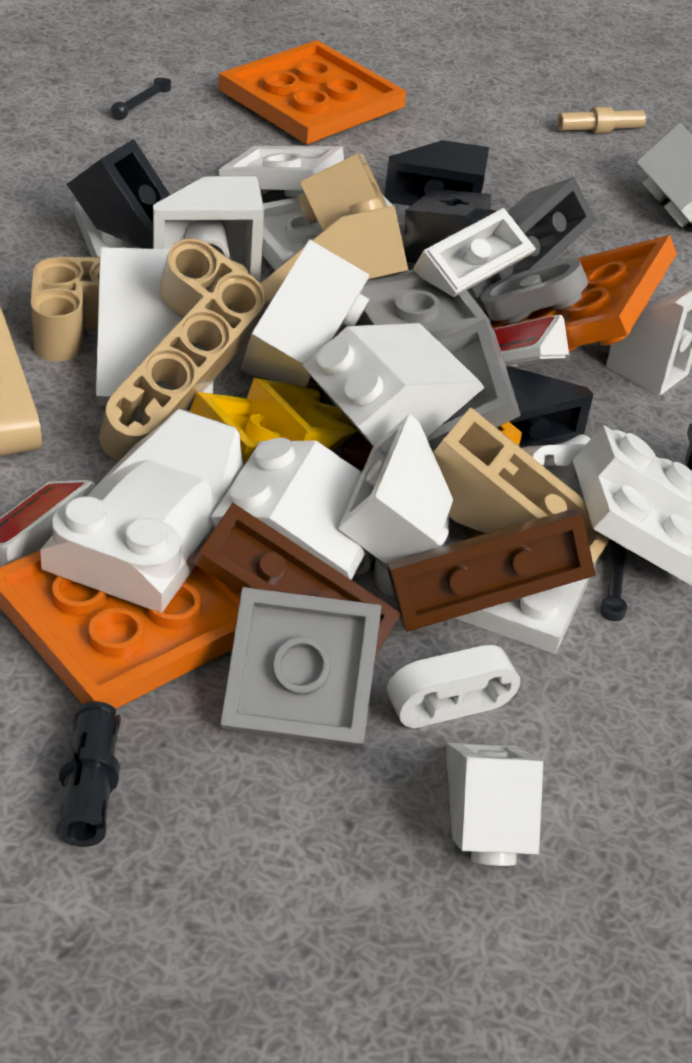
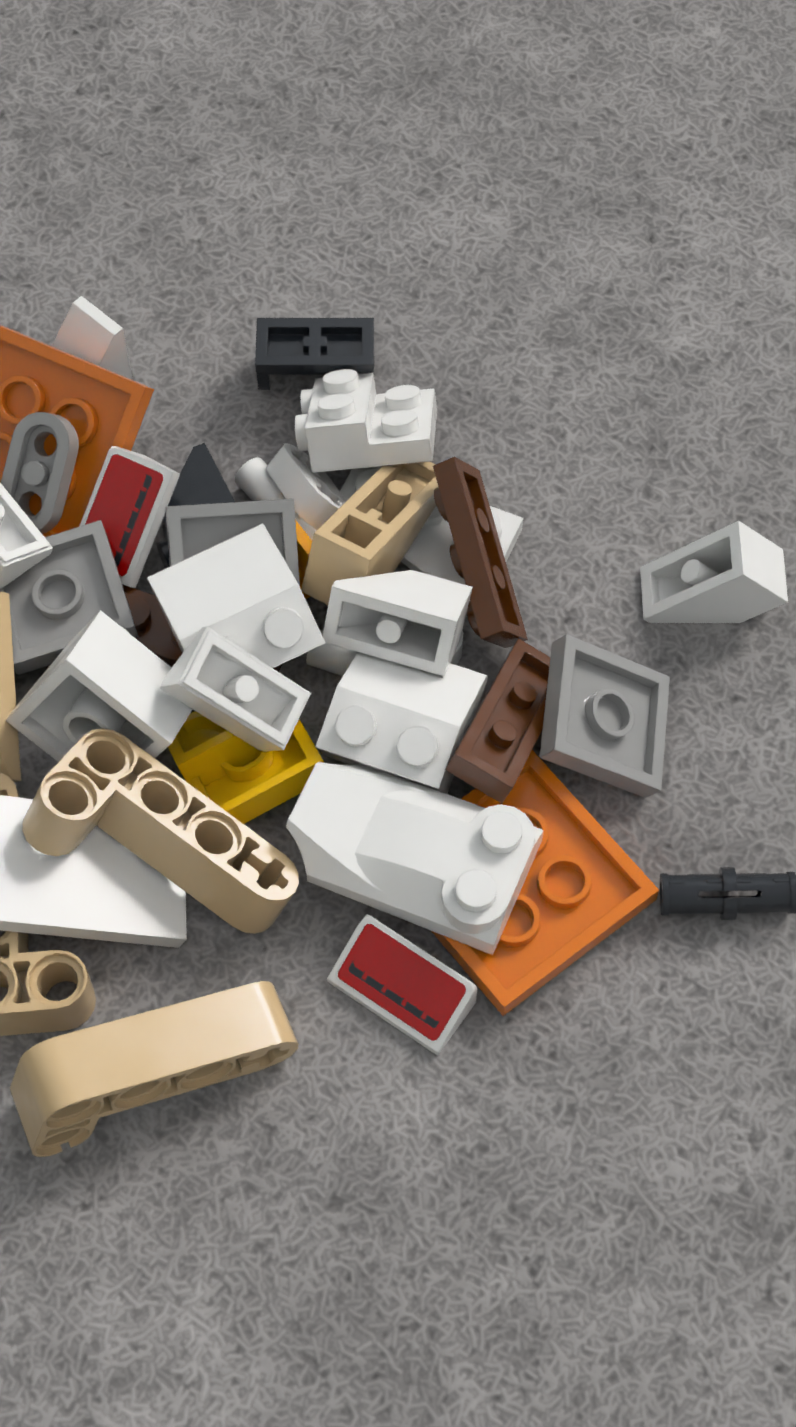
camera: 85 degrees left, 20 degrees up
(302, 370) = (236, 691): none -> white slope
(452, 686) = (596, 602): white beam -> none

